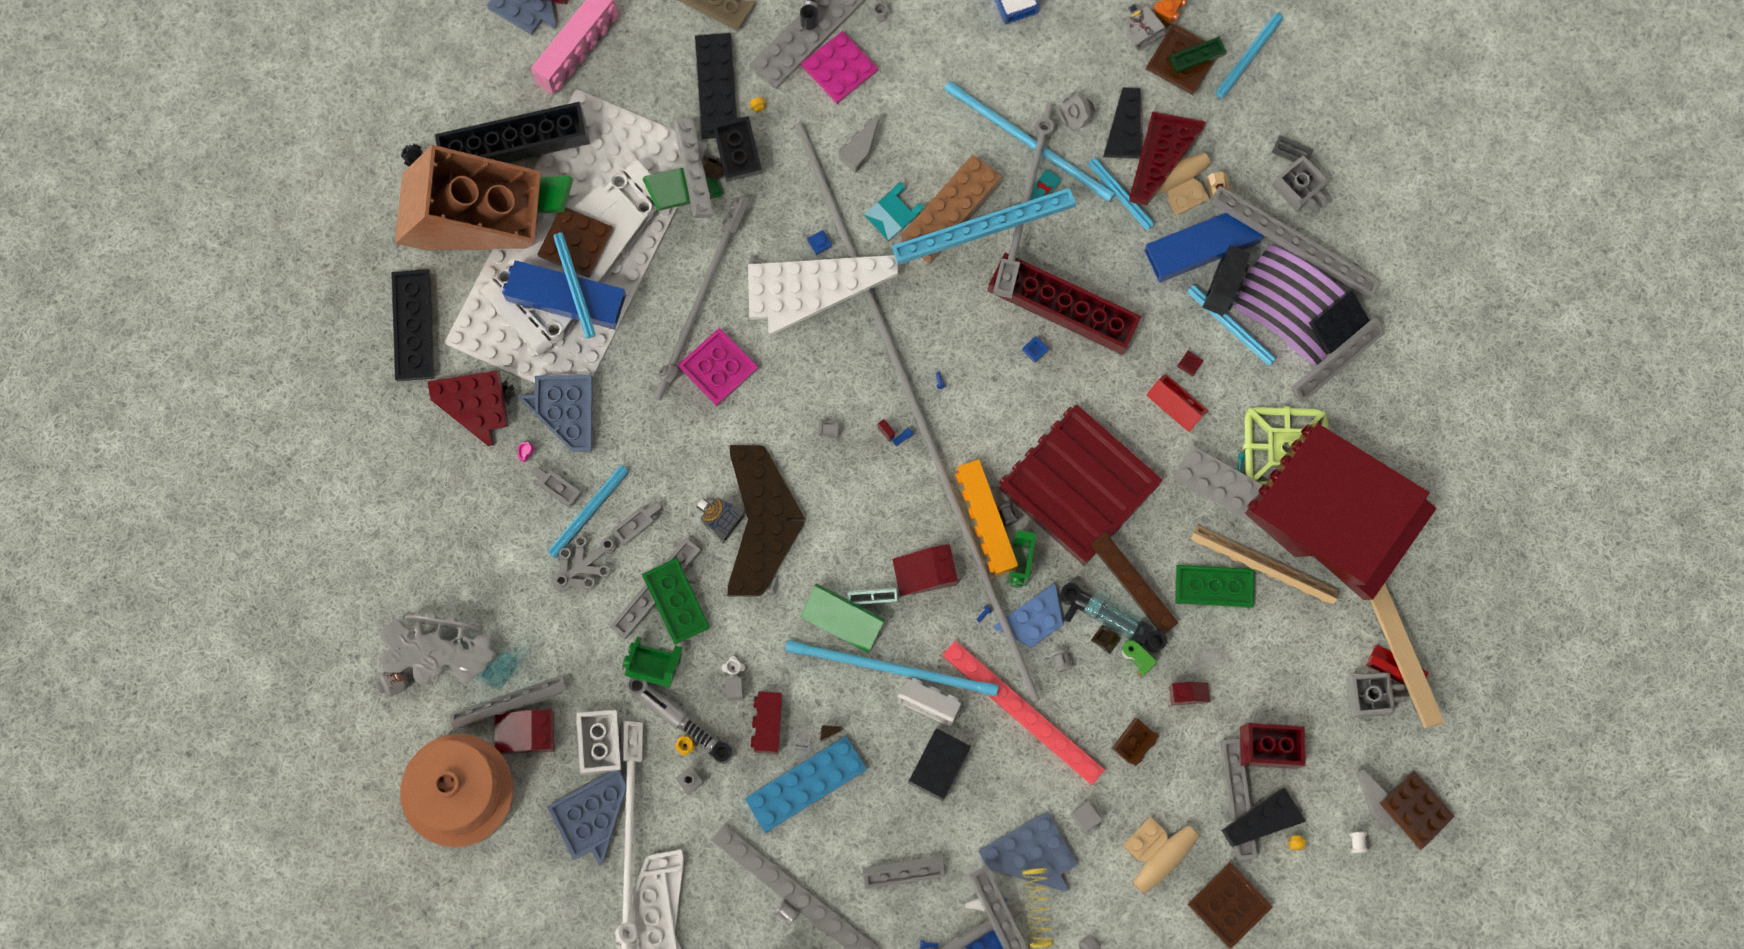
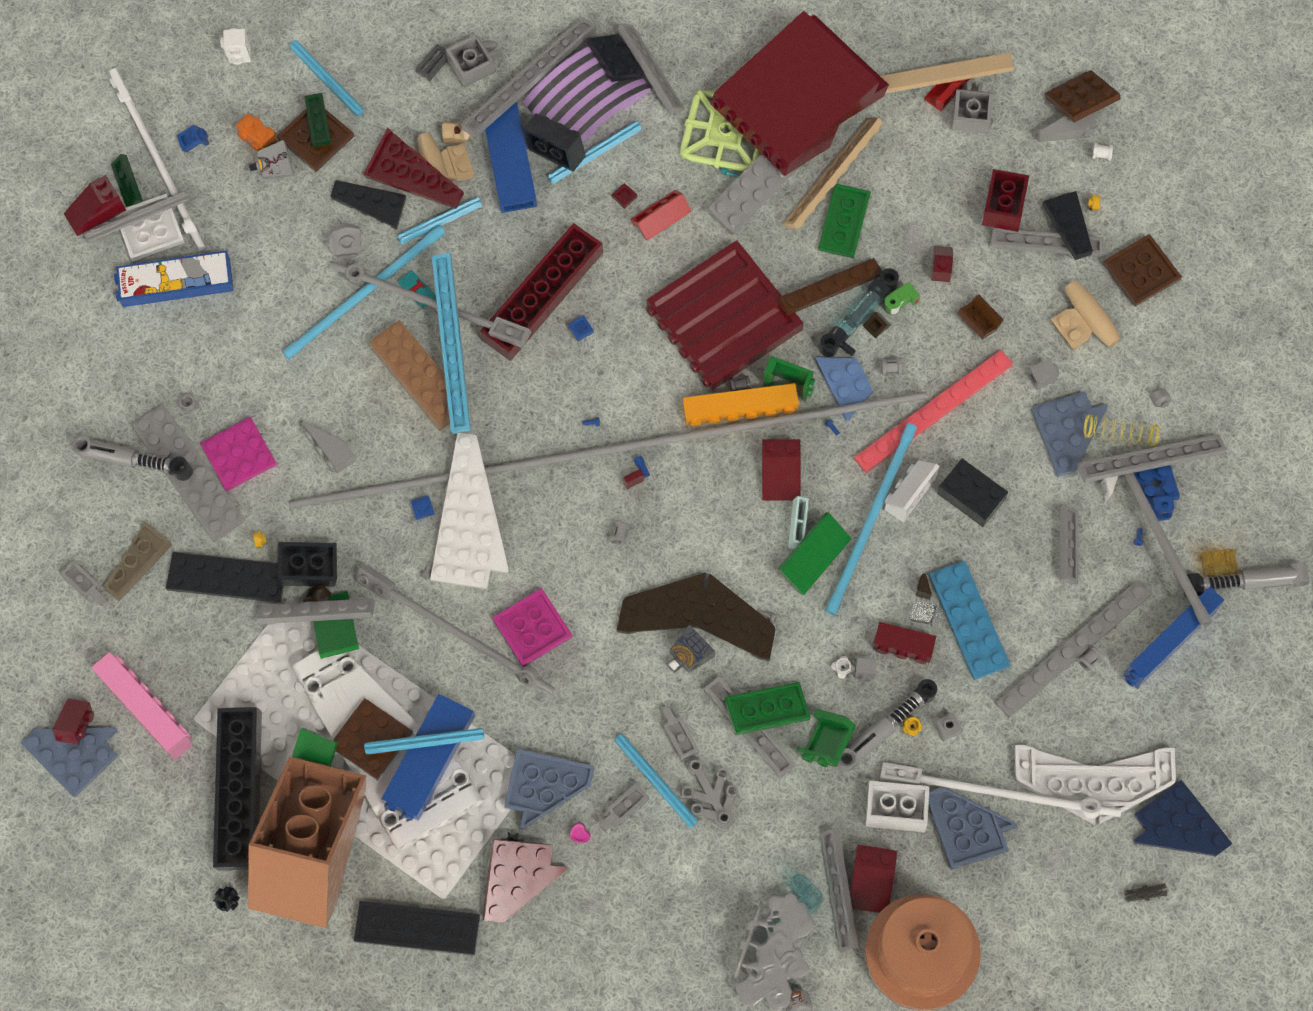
camera: 75 degrees left, 5 degrees down
(891, 214) = (408, 434): teal flag -> none

